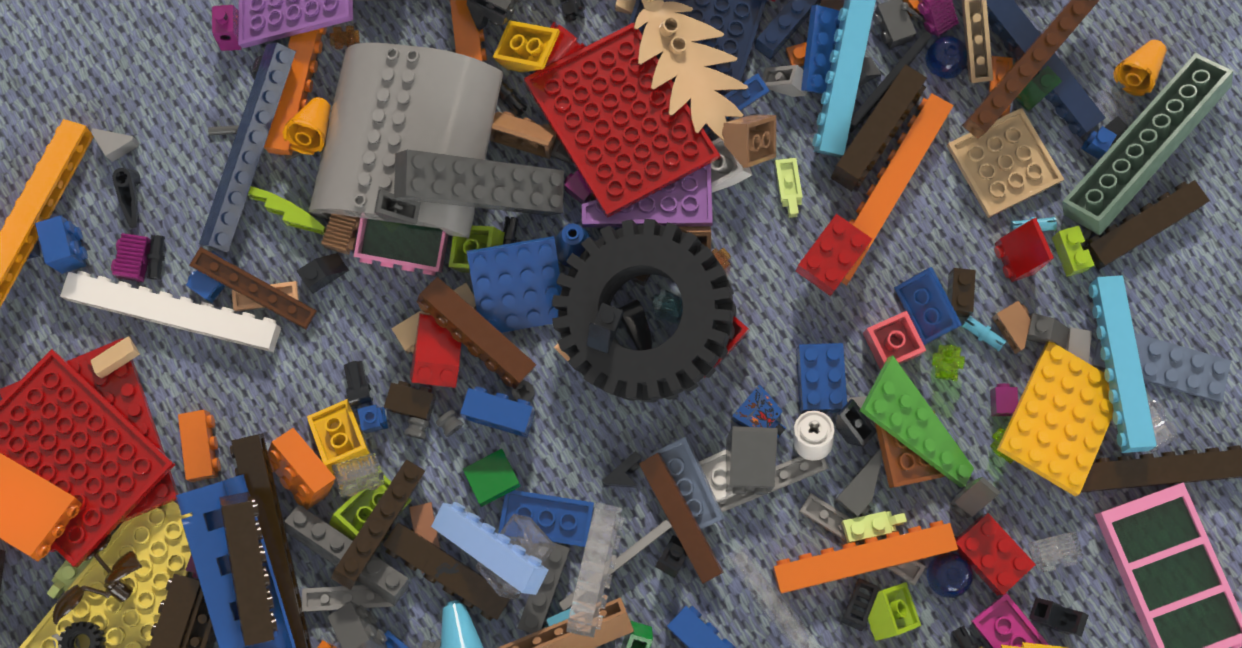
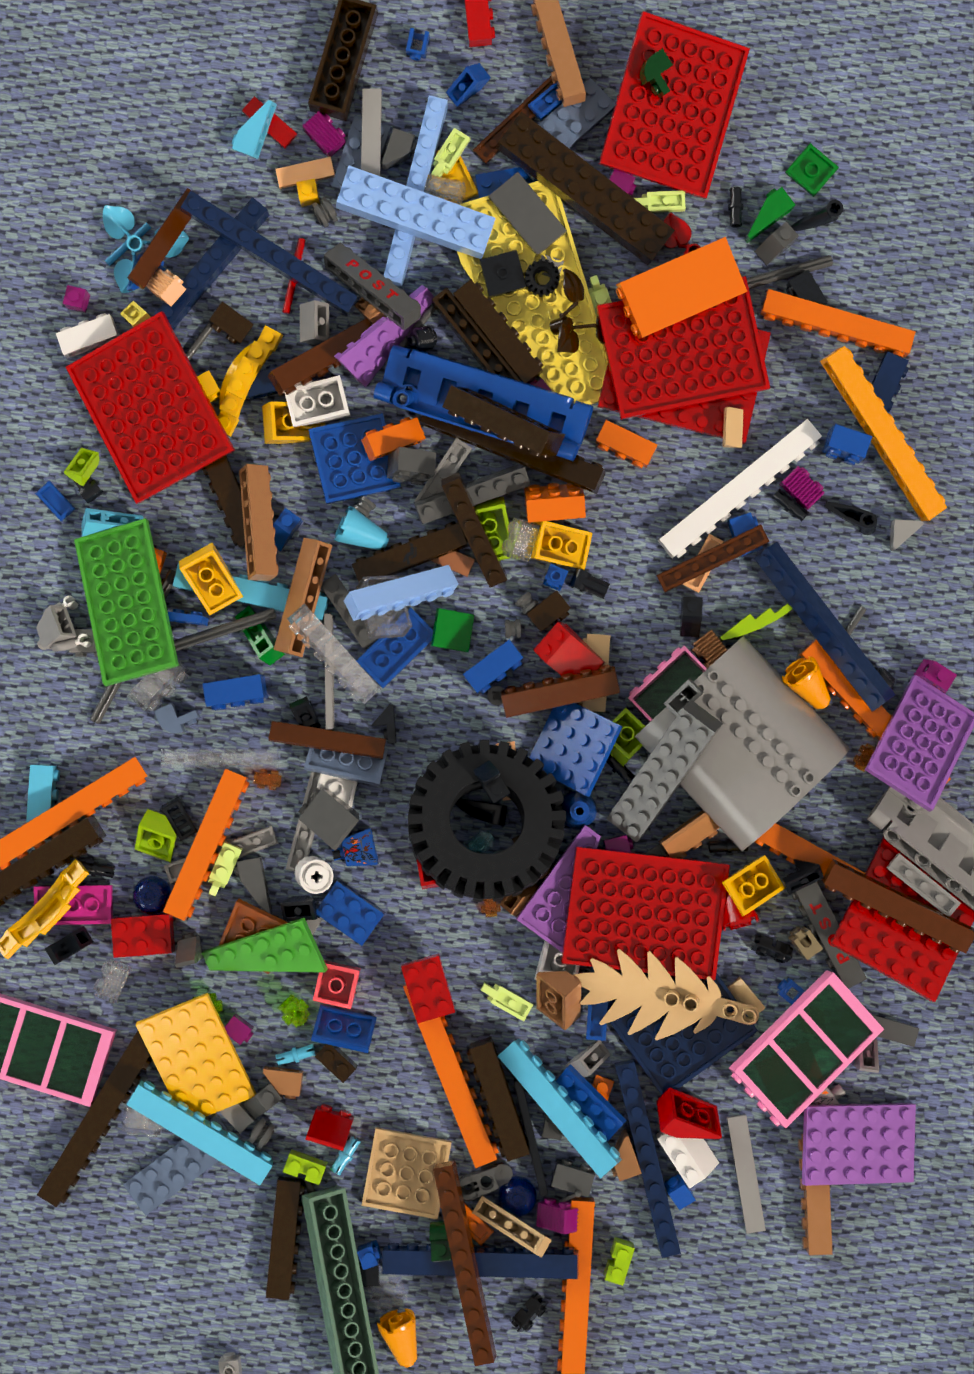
camera: 130 degrees right, 10 degrees up
(762, 552) = (262, 779): none -> clear orange piece
(942, 84) = (499, 1174): none -> dark grey piece
(1076, 310) = (261, 1133): none -> dark grey wheel

